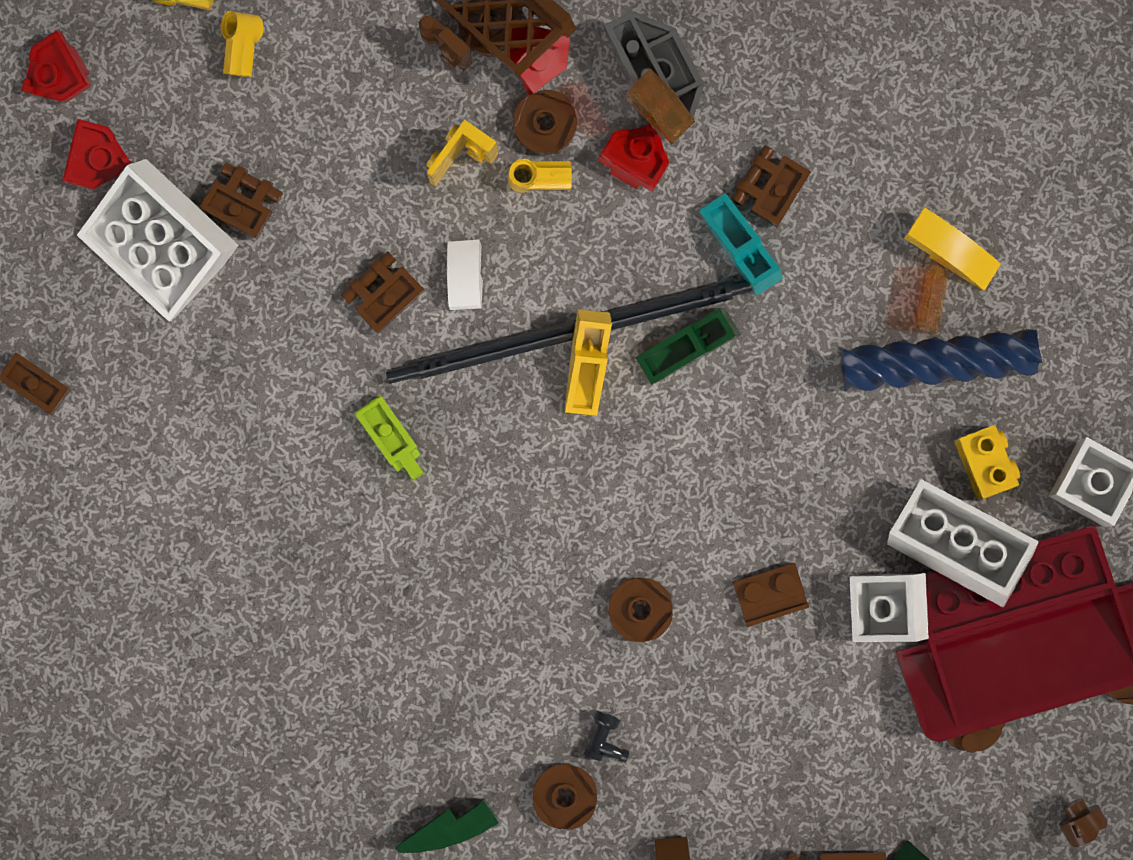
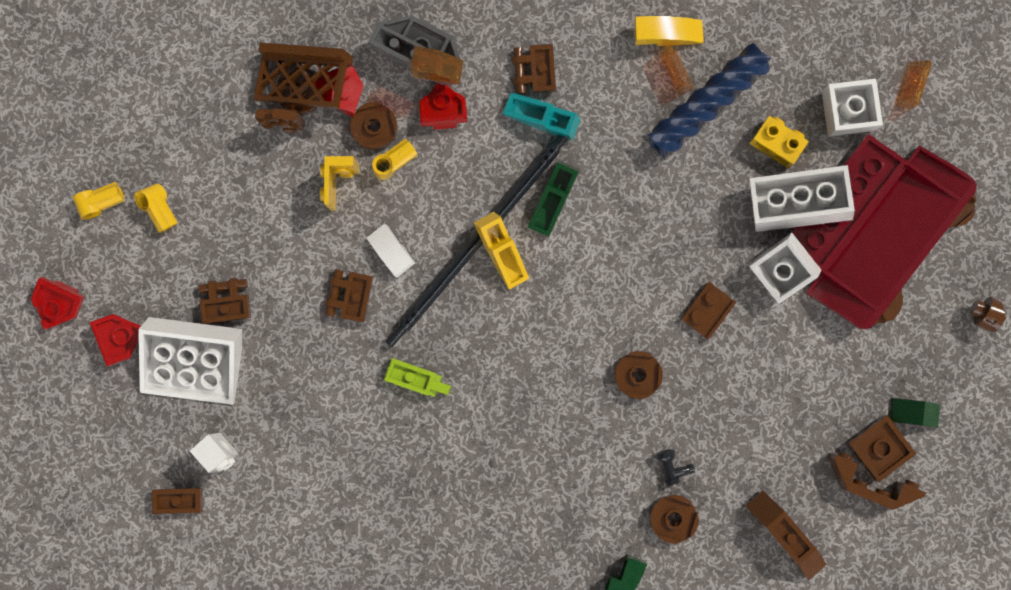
camera: 30 degrees left, 0 degrees up
(113, 360) = (214, 453): none -> white brick

